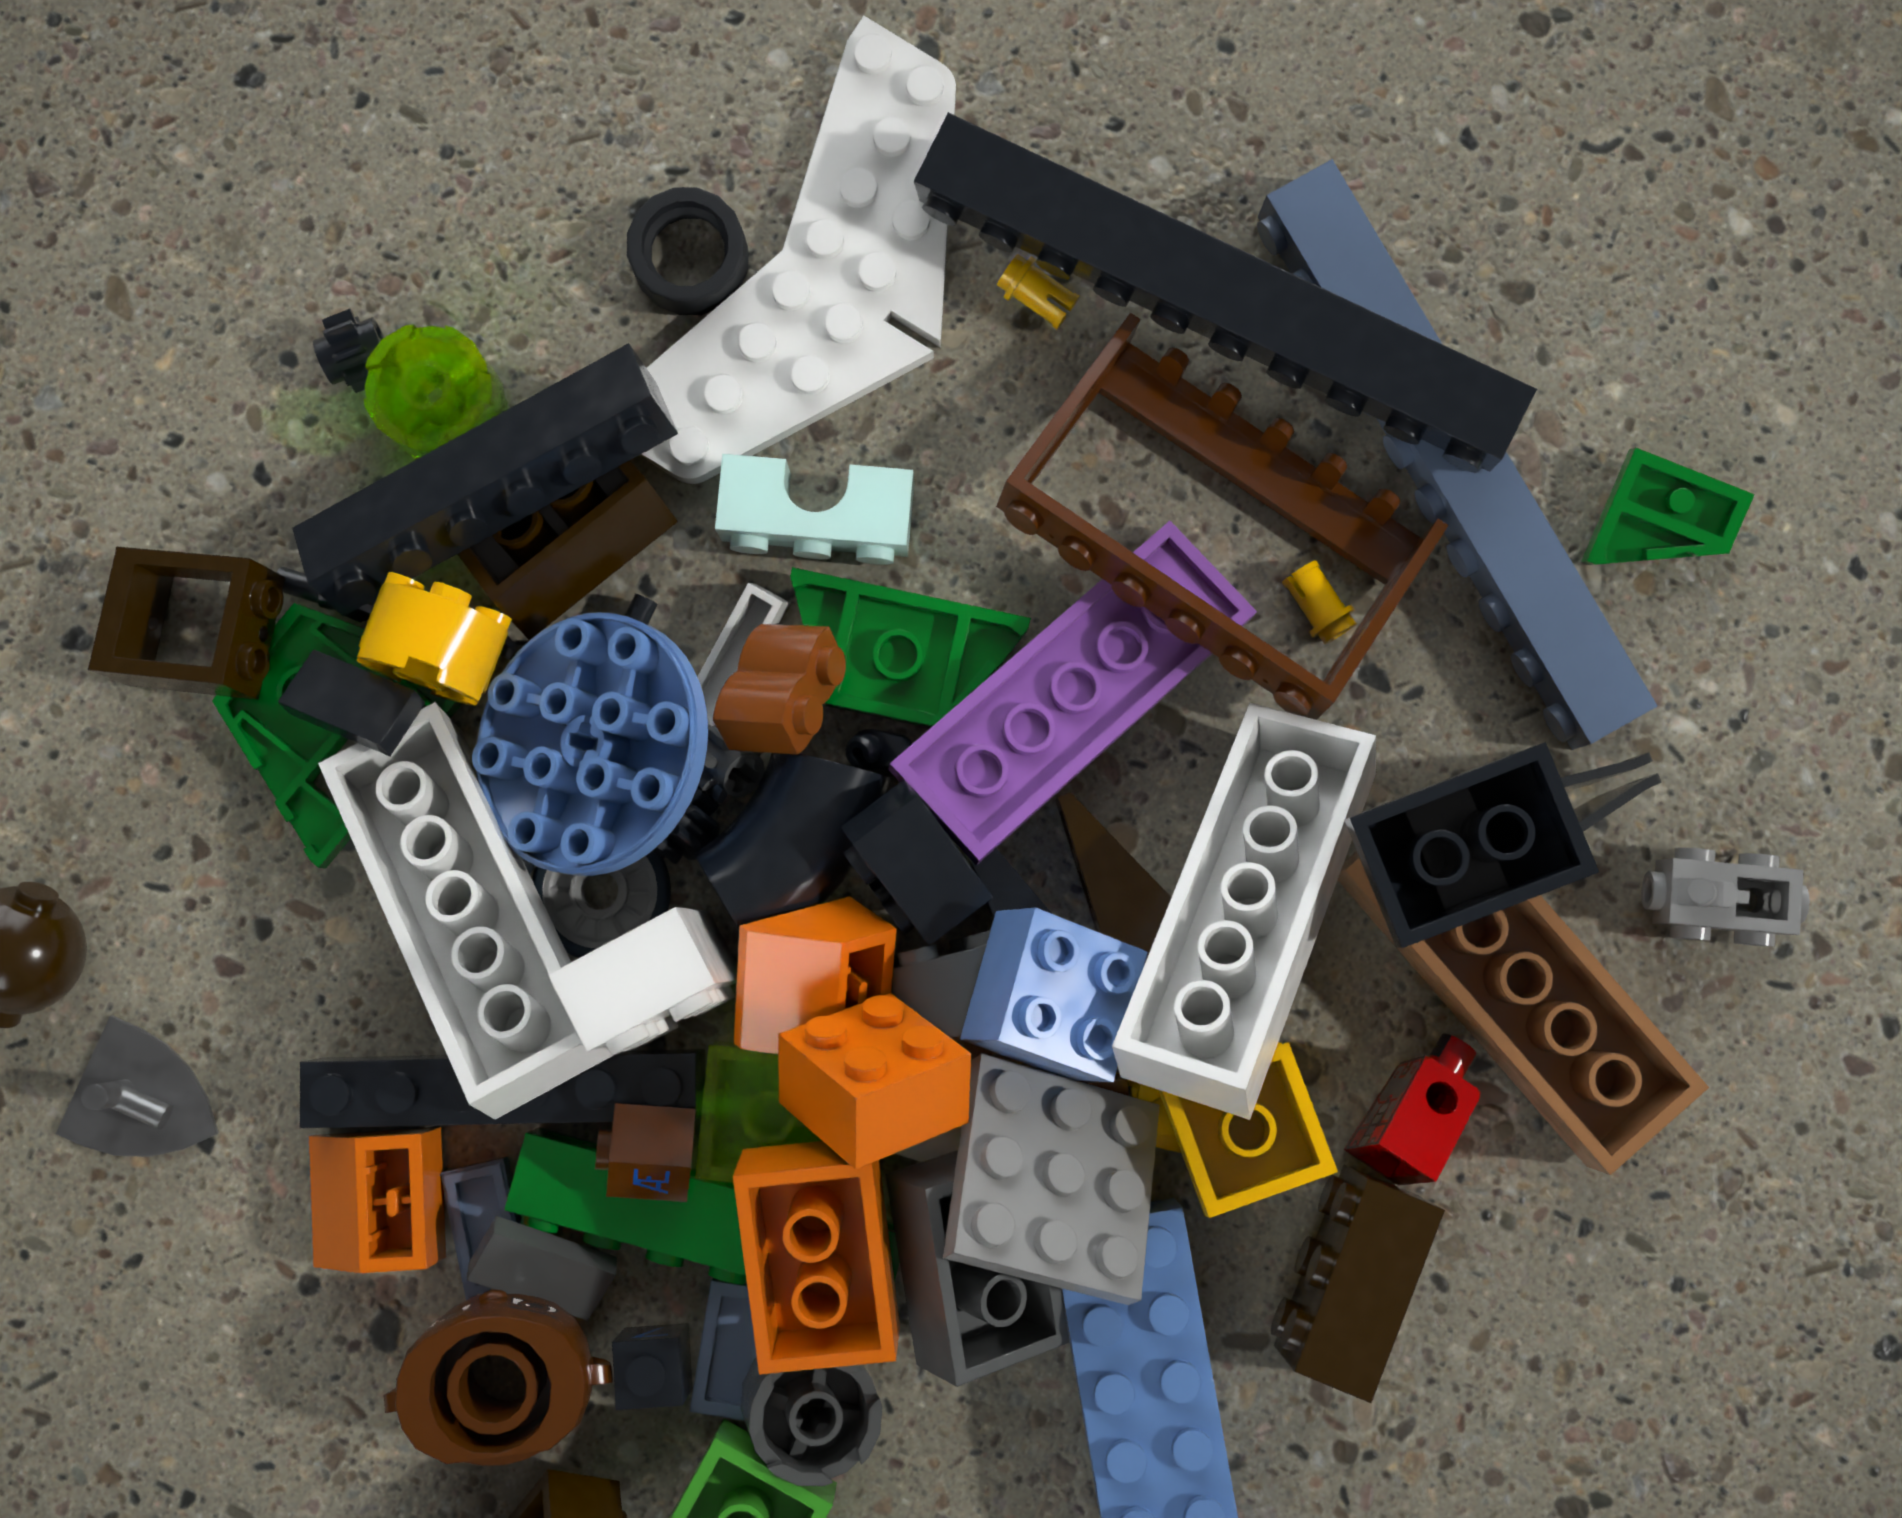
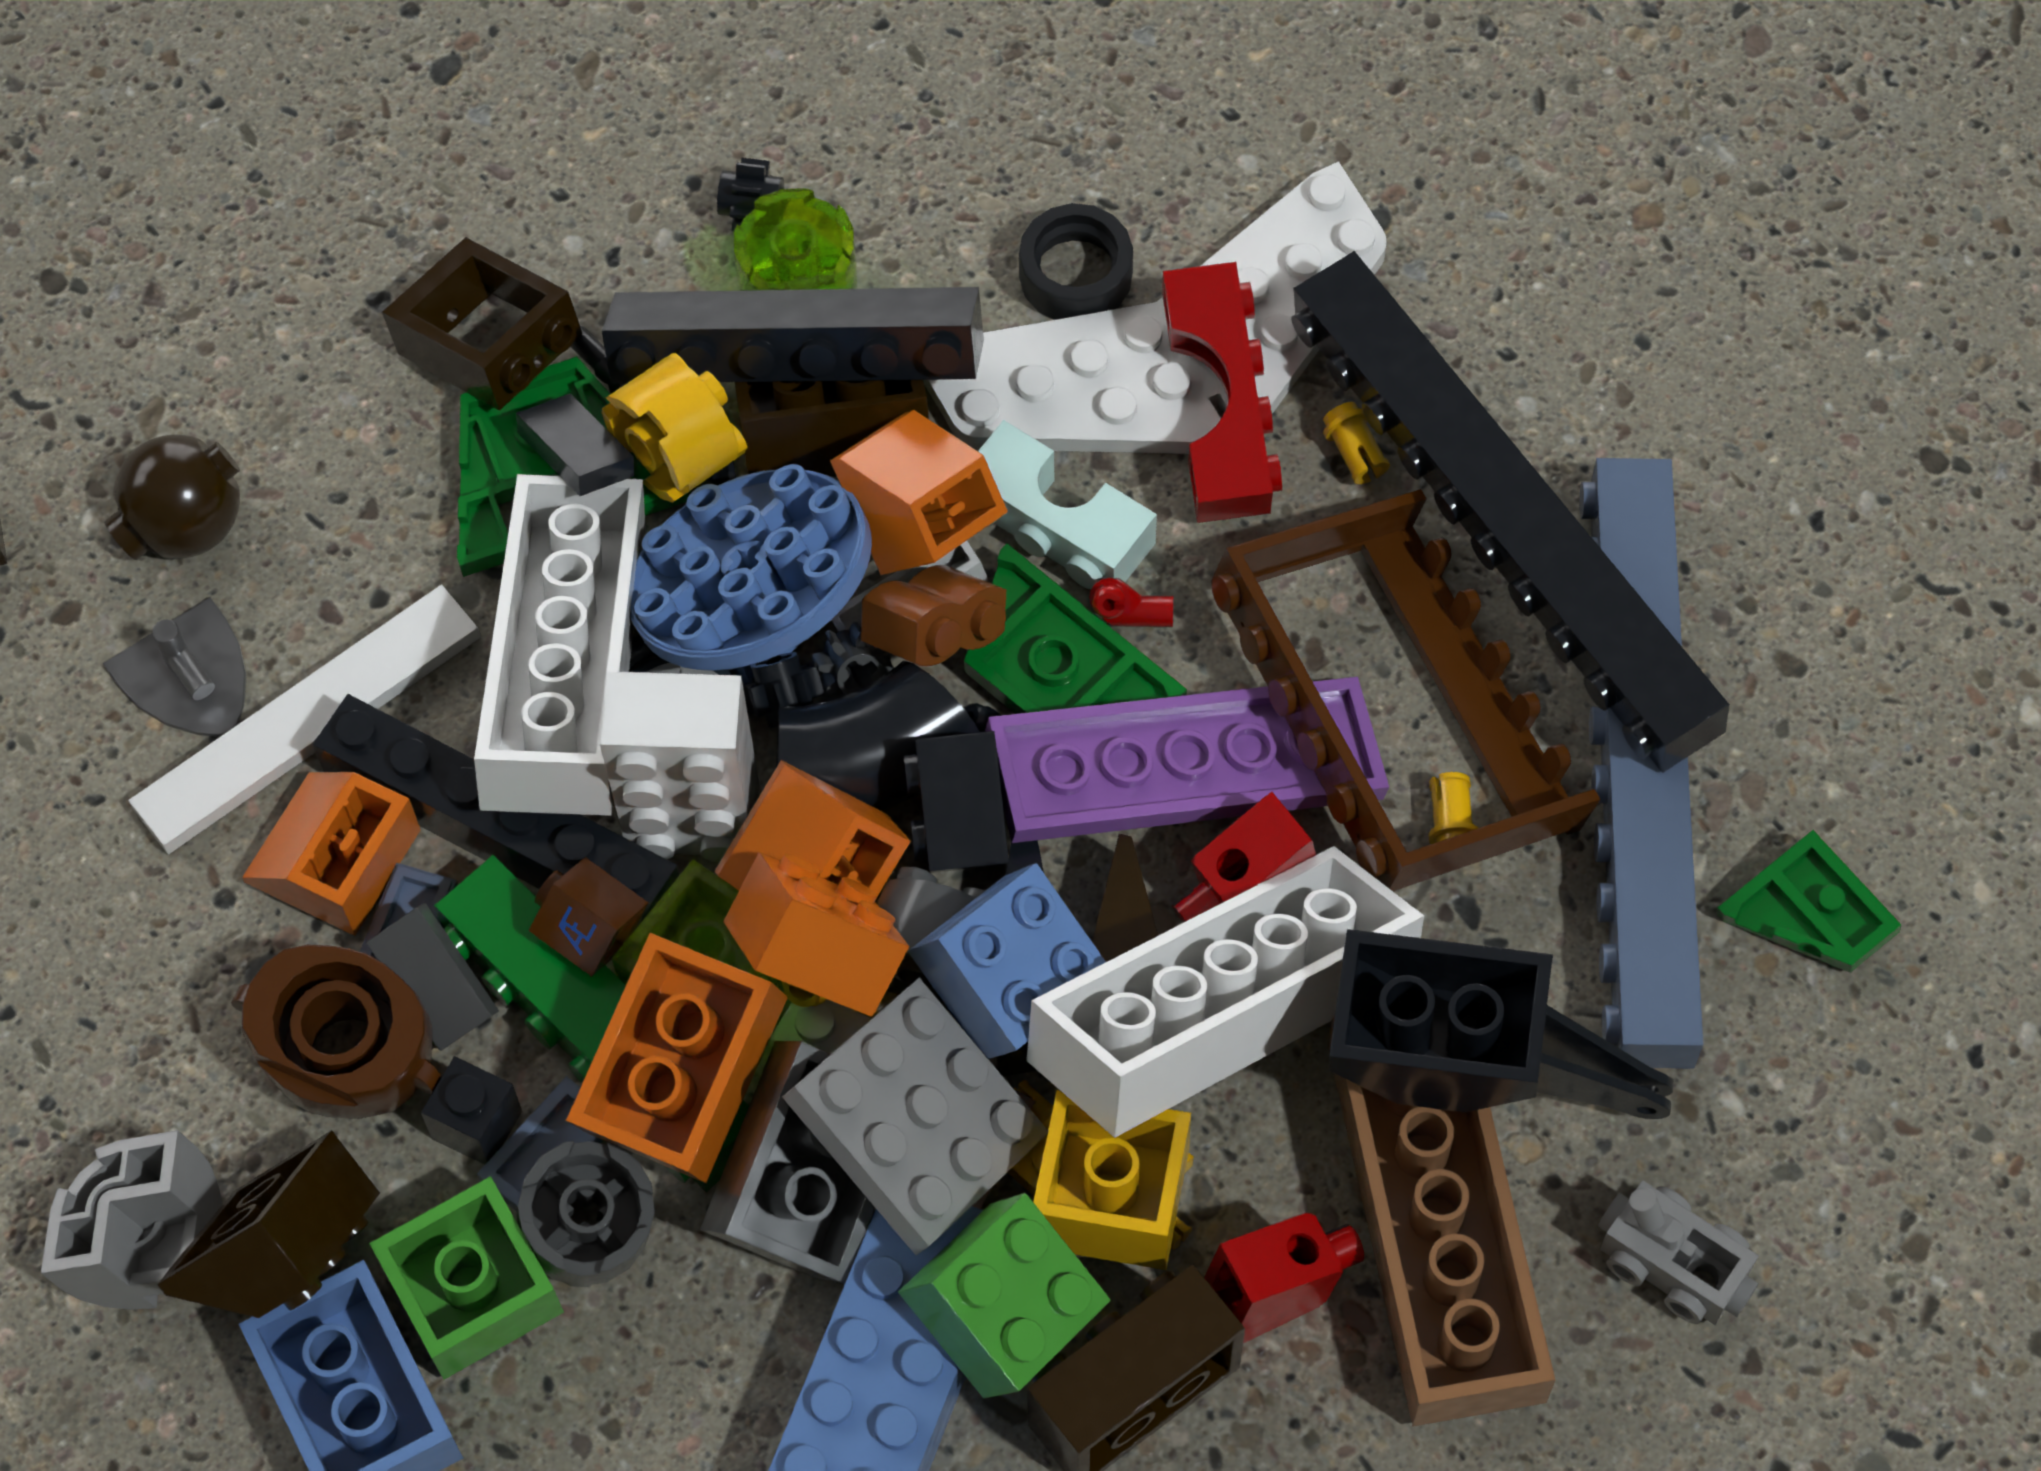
camera: 30 degrees right, 20 degrees down
(268, 1085) = (286, 728): none -> white tile
(694, 577) = (918, 491): none -> orange slope
(849, 251) = (1207, 321): none -> red arch
(922, 566) = (1126, 607): none -> red arm
(1194, 737) = (1244, 855): none -> red torso
(1224, 1295) = (1004, 1296): none -> bright green brick

